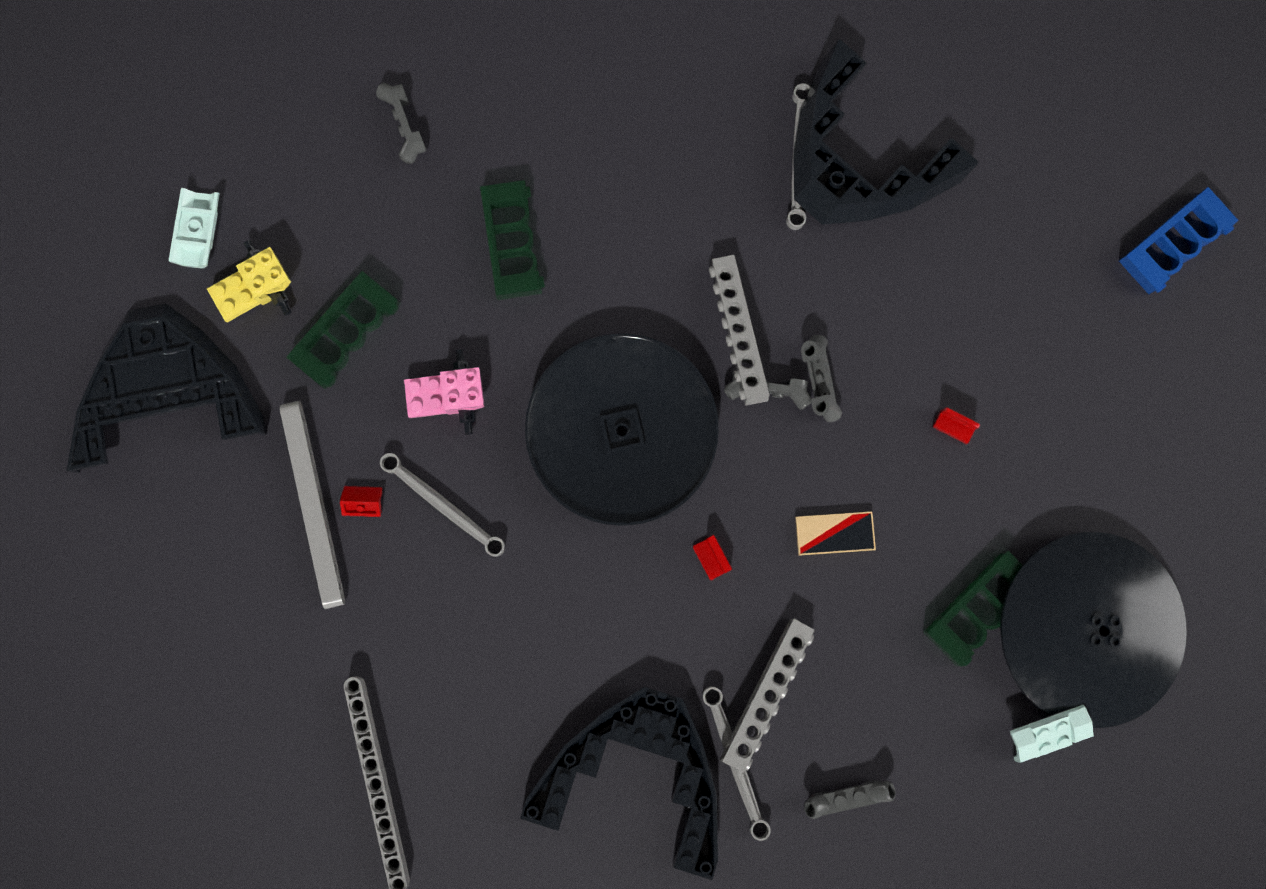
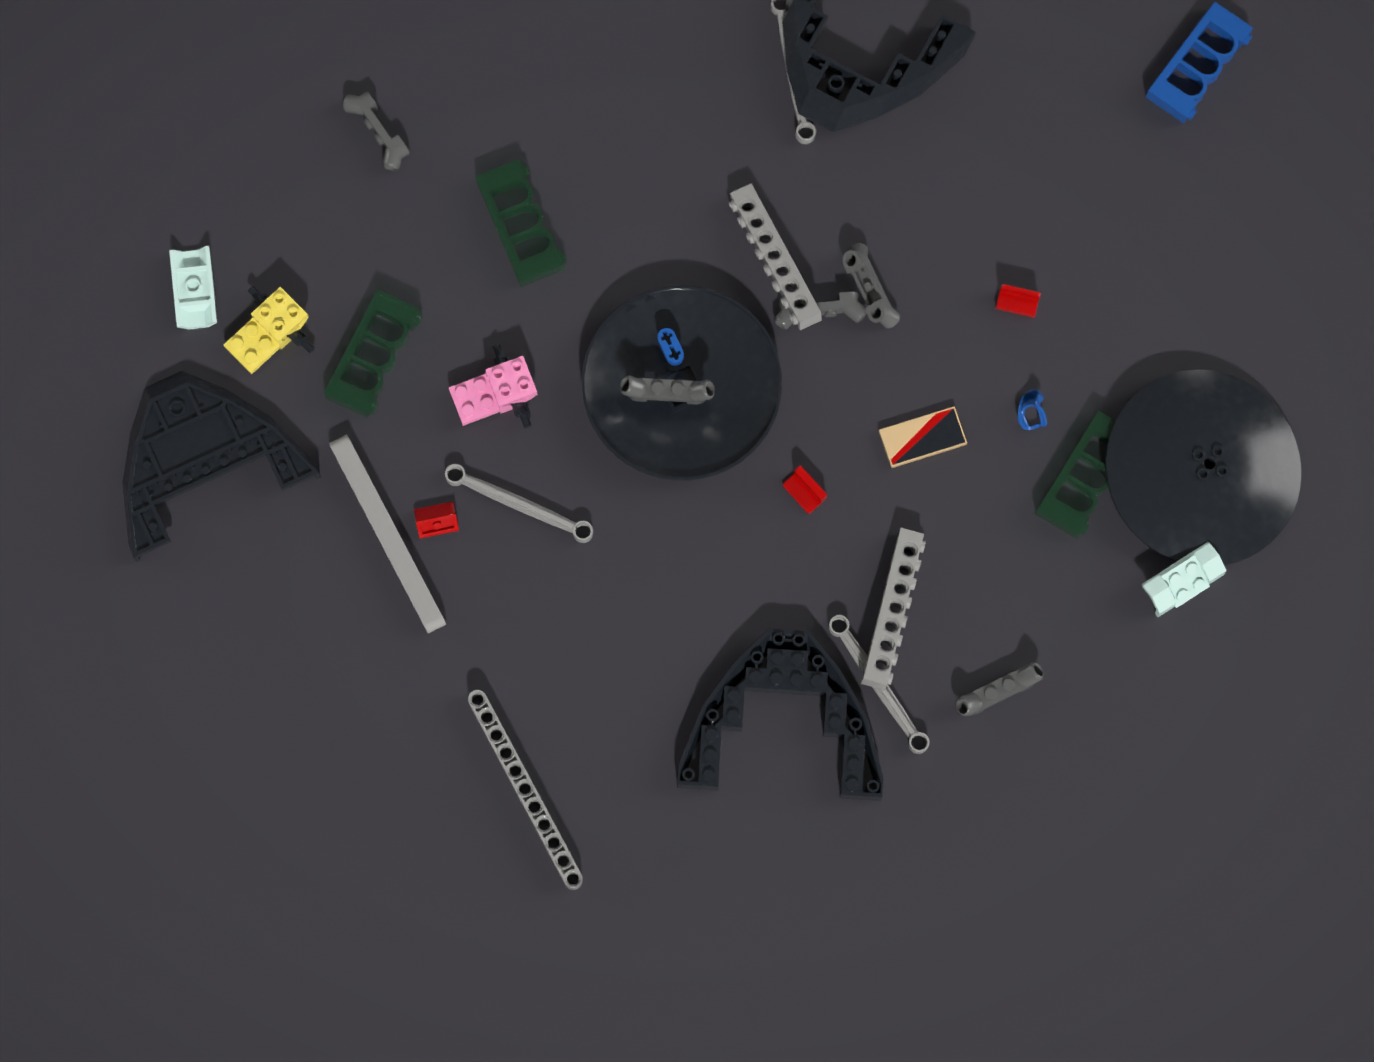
camera: 10 degrees left, 5 degrees down
(605, 434) = (667, 390): none -> dark grey plate
(614, 393) = (674, 344): none -> blue beam
(947, 523) = (1031, 398): none -> blue piece

